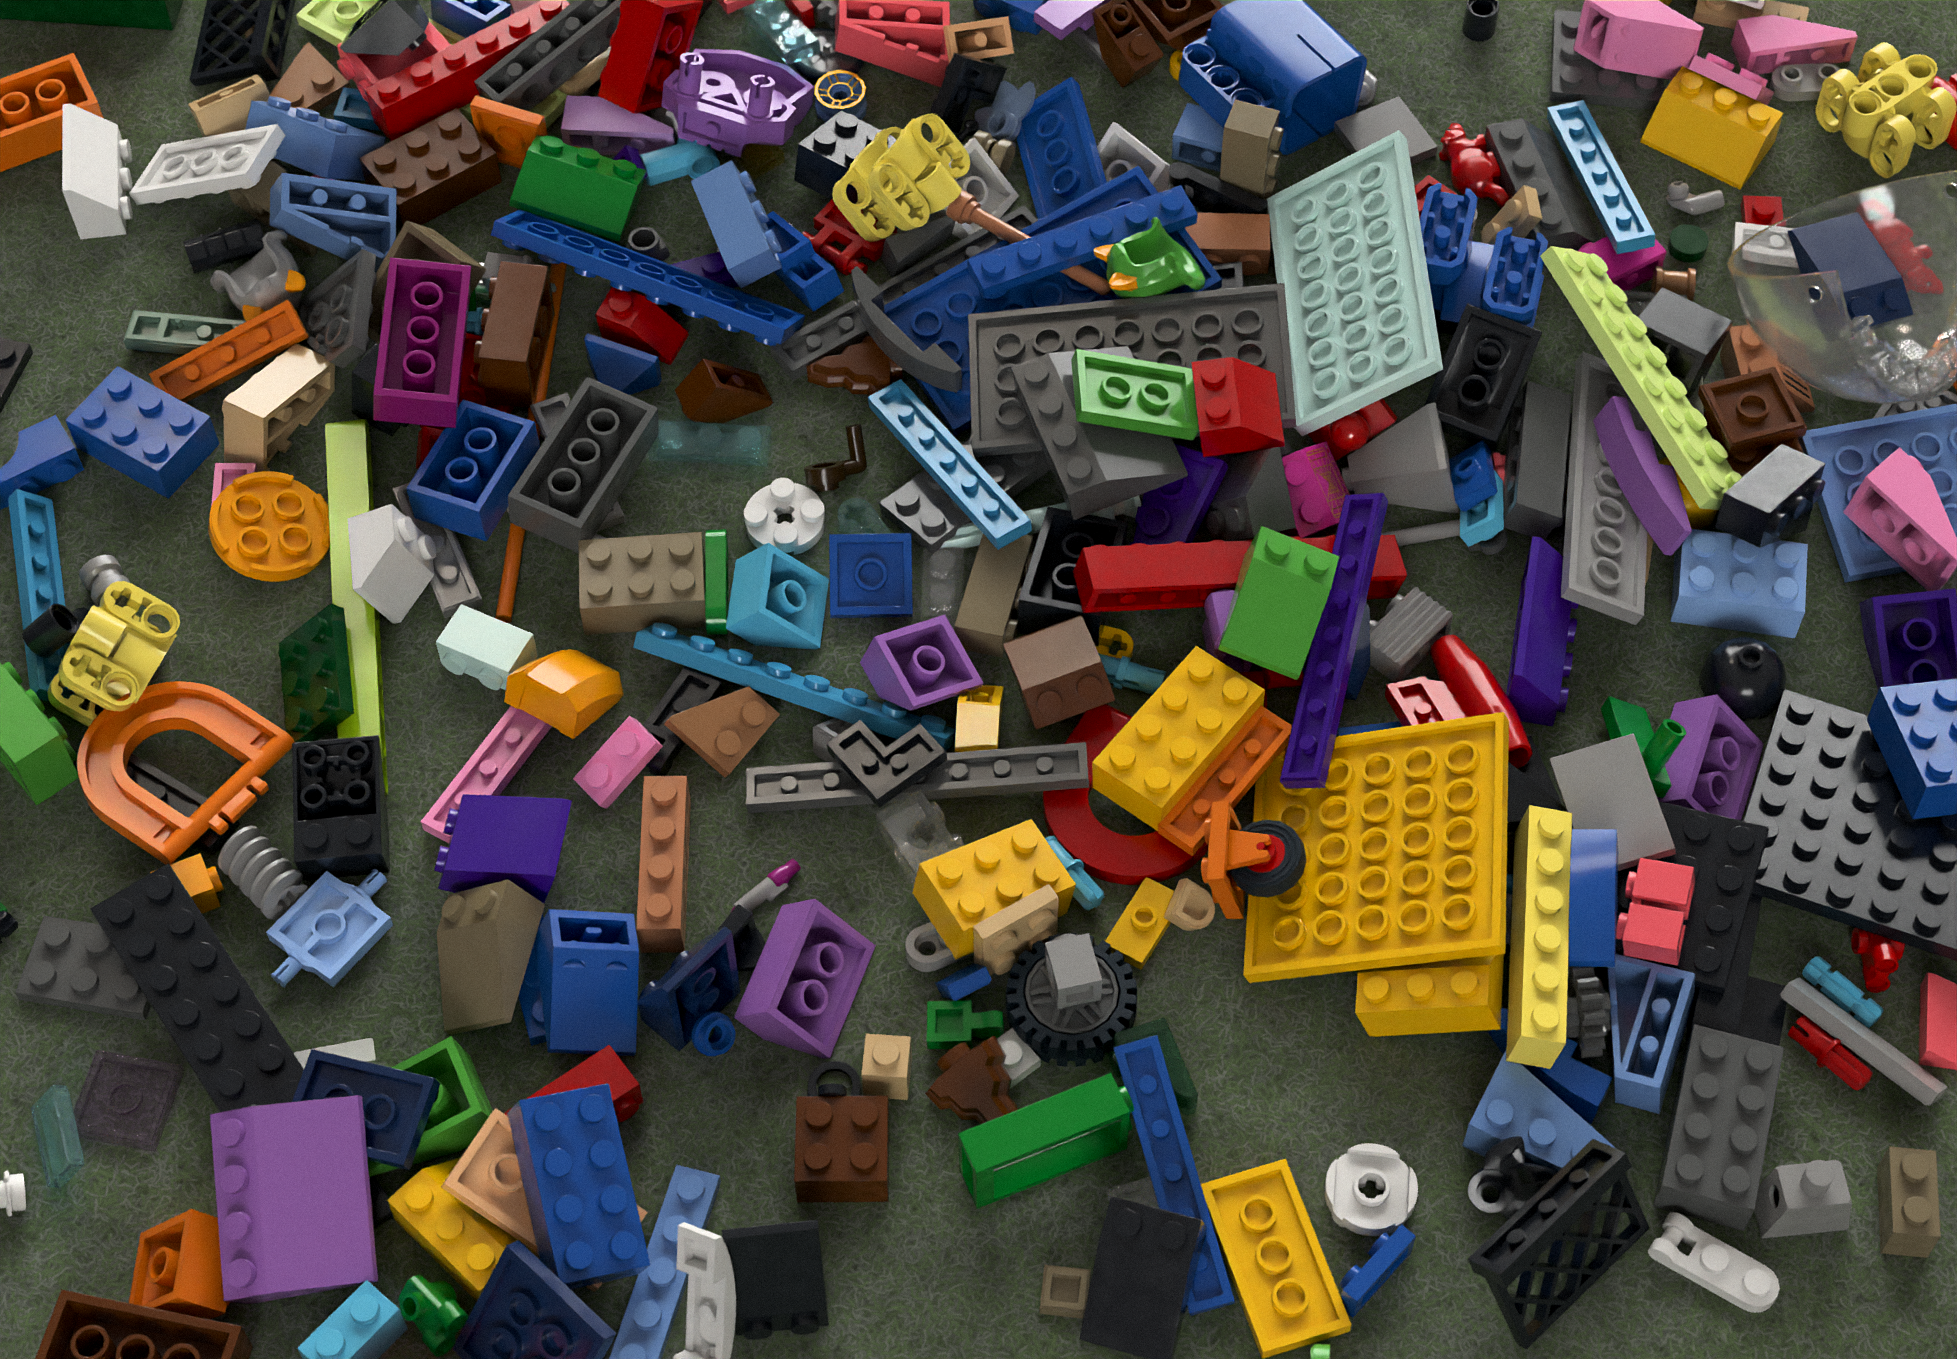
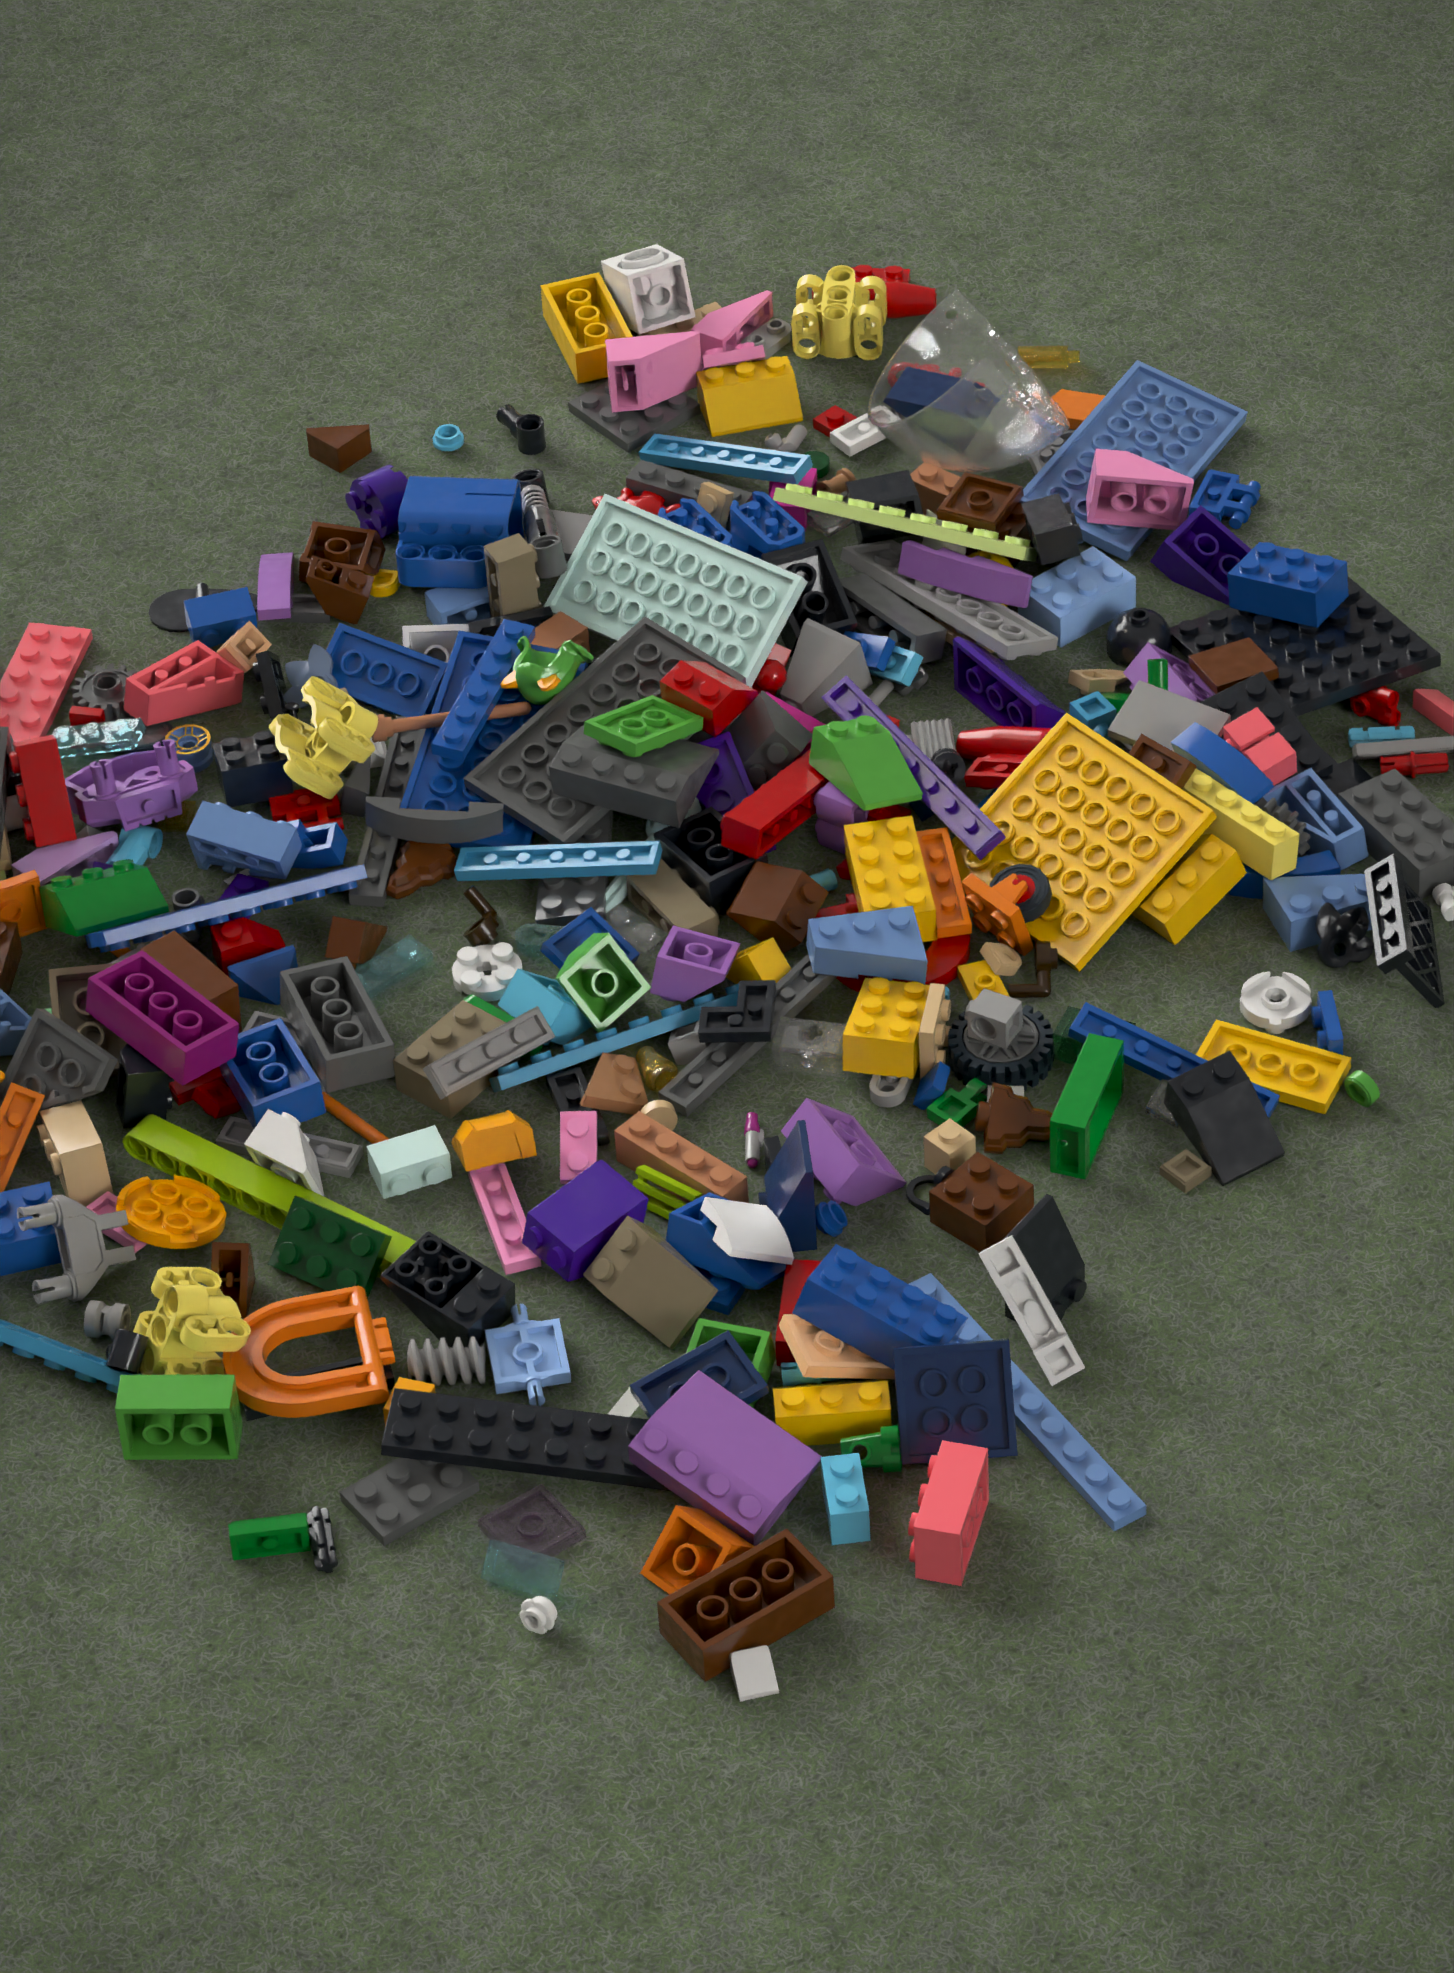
camera: 45 degrees left, 15 degrees down
(157, 494) = (79, 1245): none -> light grey connector
(224, 636) = (236, 1269): none -> reddish brown slope
(592, 989) = (748, 1230): none -> white slope
(621, 874) = (647, 1173): none -> lime tile
(648, 604) = (488, 1052): none -> light grey tile
(717, 793) = (662, 1112): none -> tan tile
(780, 741) = (655, 1068): none -> clear yellow cone
(821, 615) = (601, 980): none -> bright green slope
(1063, 791) = (868, 944): none -> medium blue wedge
(1222, 944) = (1045, 960): none -> dark brown plate
(1309, 144) = (541, 524): none -> dark grey piece
(1389, 657) = (946, 759): none -> black wheel
(1528, 846) = (1163, 760): none -> reddish brown plate
(1578, 725) = (1094, 712): none -> dark azure brick
(1649, 687) = (1096, 680): none -> tan plate
(1767, 792) = (1231, 664): none -> reddish brown tile

